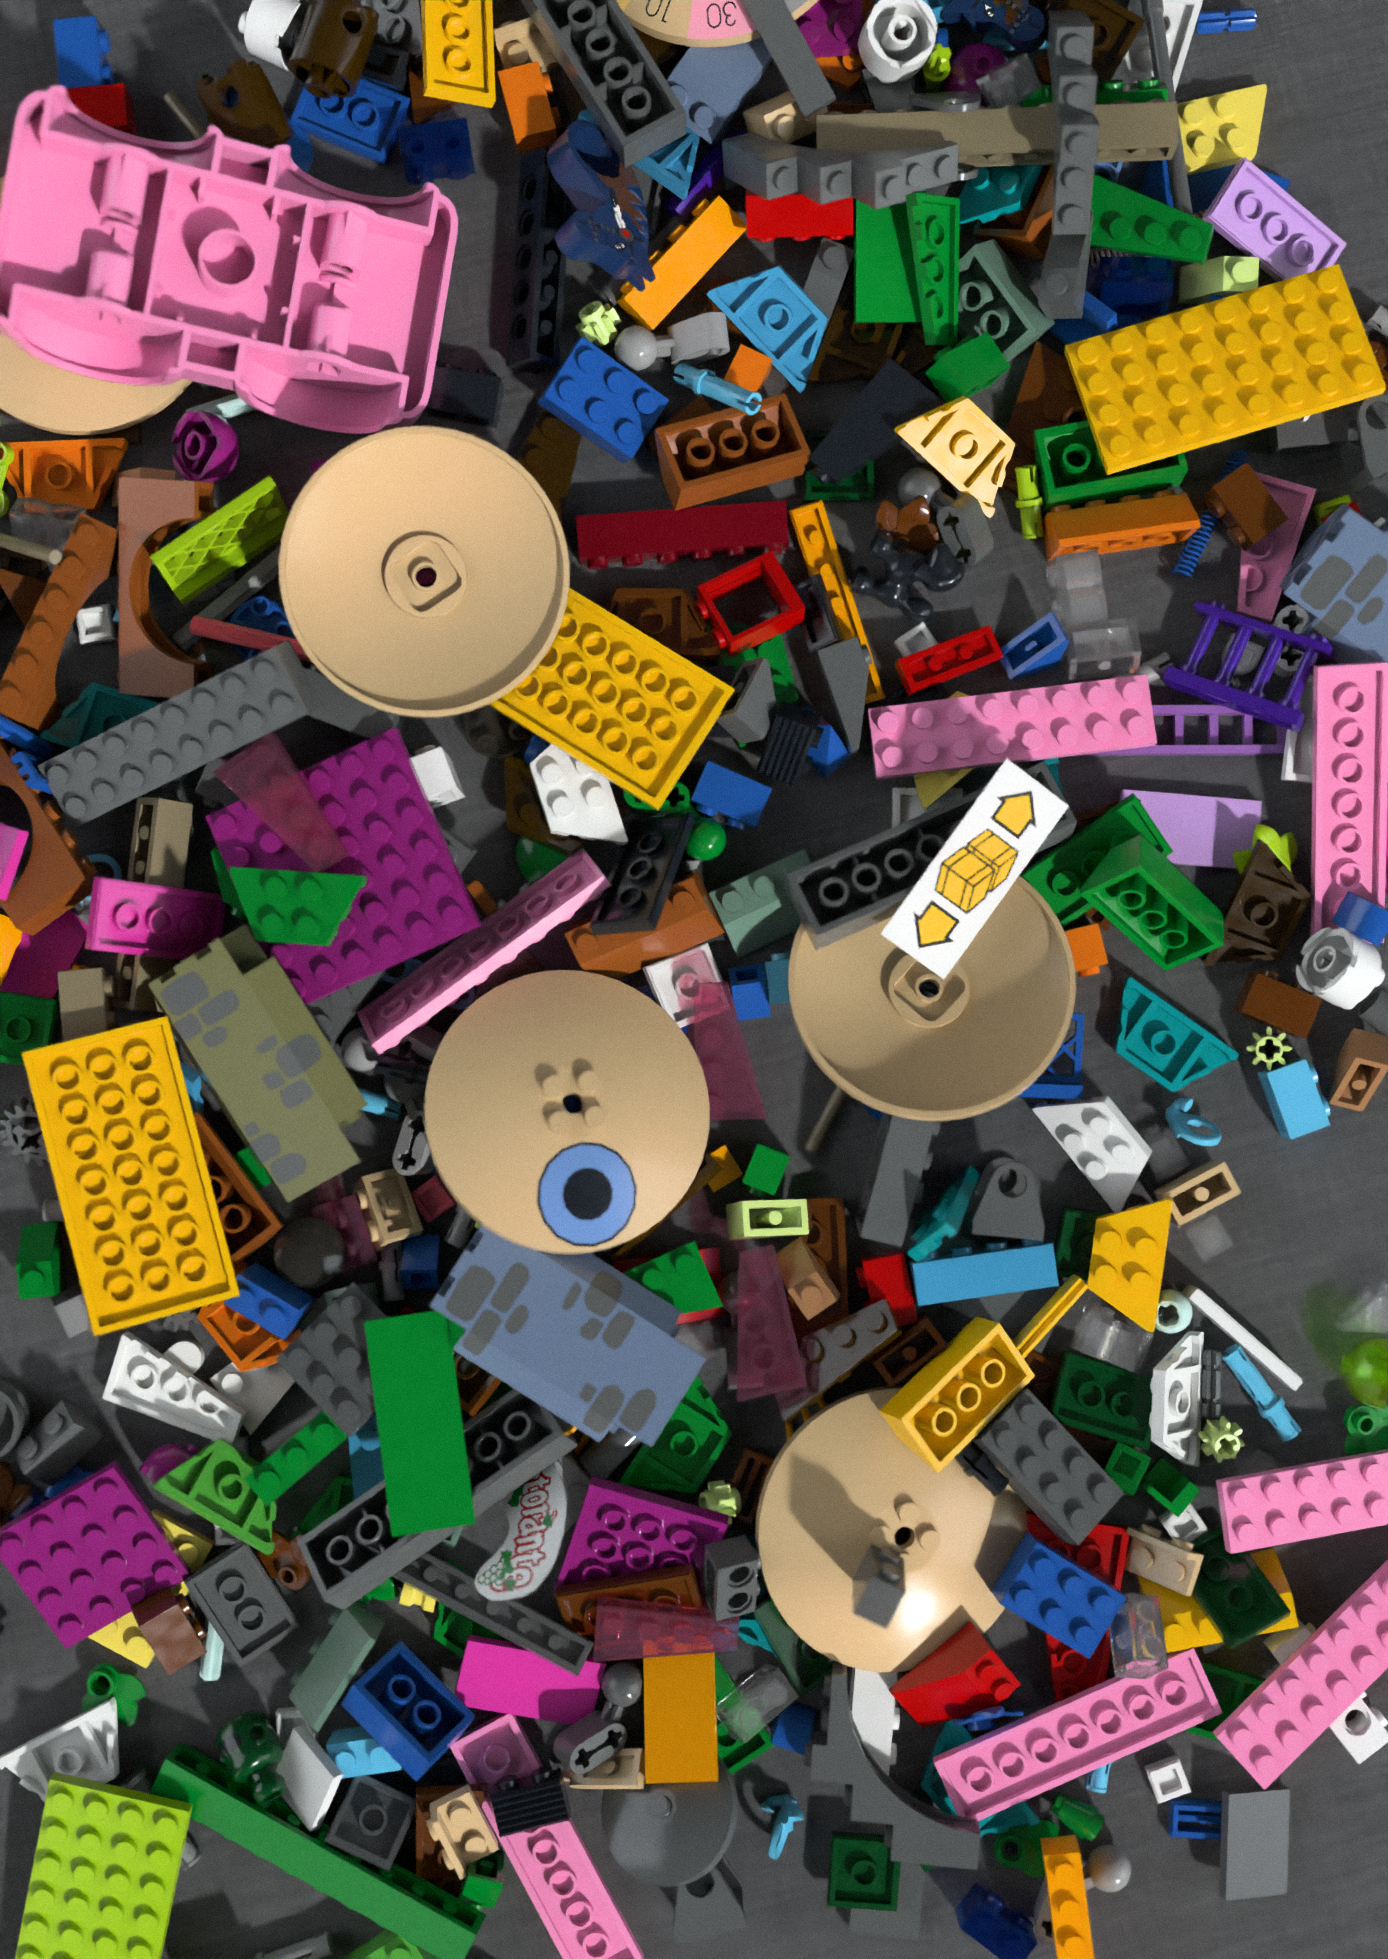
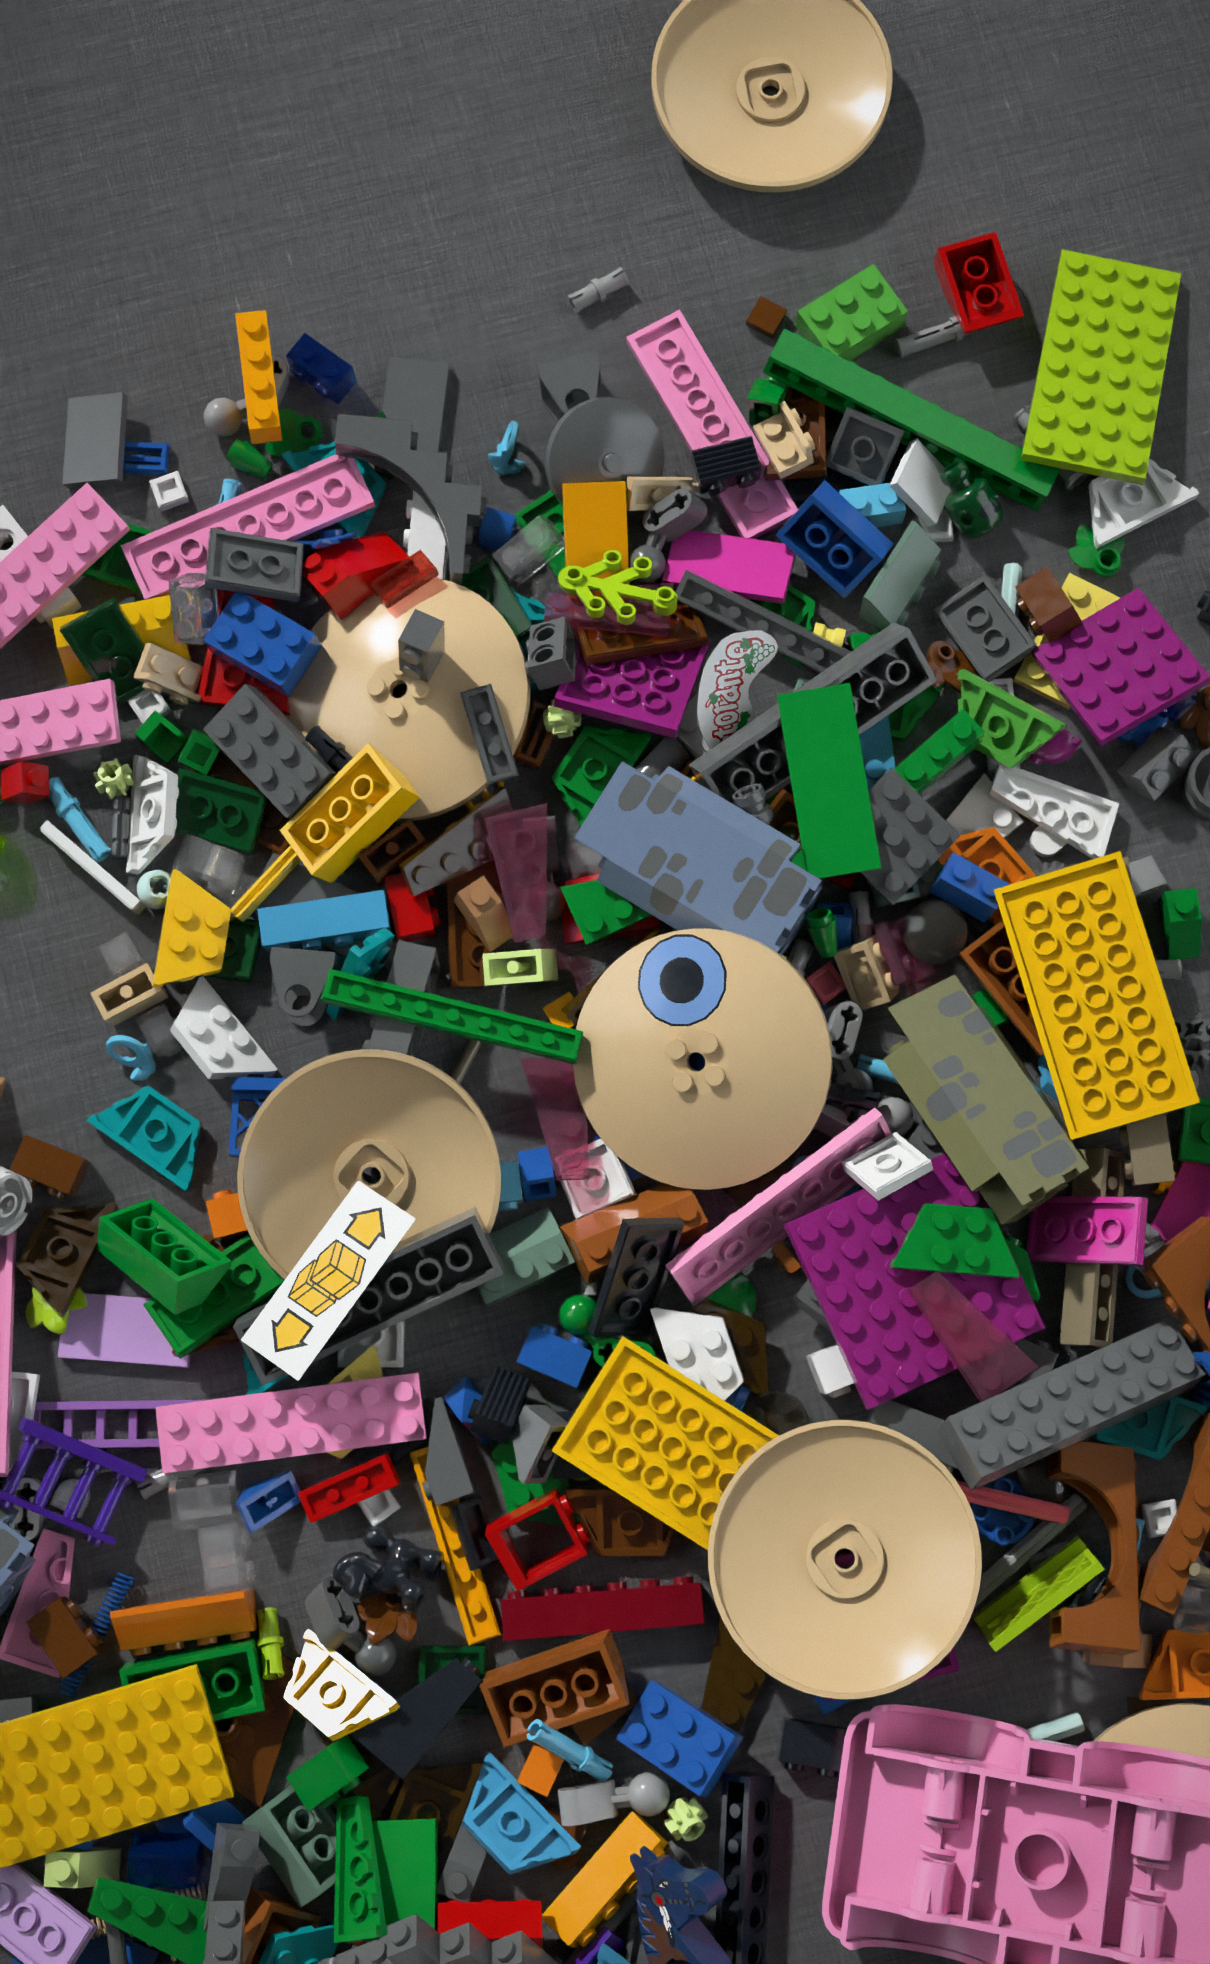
camera: 170 degrees left, 10 degrees down
(205, 447) = (1062, 1689): magenta cylinder -> none
(367, 989) = (887, 1166): none -> white tile
(433, 1256) = (823, 931): none -> green cone
(507, 1401) = (752, 801): none -> dark grey wheel
(699, 1664) = (578, 581): none -> lime plant
(764, 1170) = (525, 1003): green brick -> none
(801, 1482) = (489, 734): none -> dark grey tile
(843, 1158) = (451, 1016): none -> green tile
(862, 1872) = (437, 410): dark green tile -> none
(899, 1668) = (403, 579): none -> clear red plate
(1070, 1687) = (254, 565): none -> dark grey tile
(1276, 1055) = (66, 1121): yellowish green gear -> none
(1295, 1098) = (36, 1081): medium azure brick -> none
(1321, 1434) = (24, 783): none -> red brick

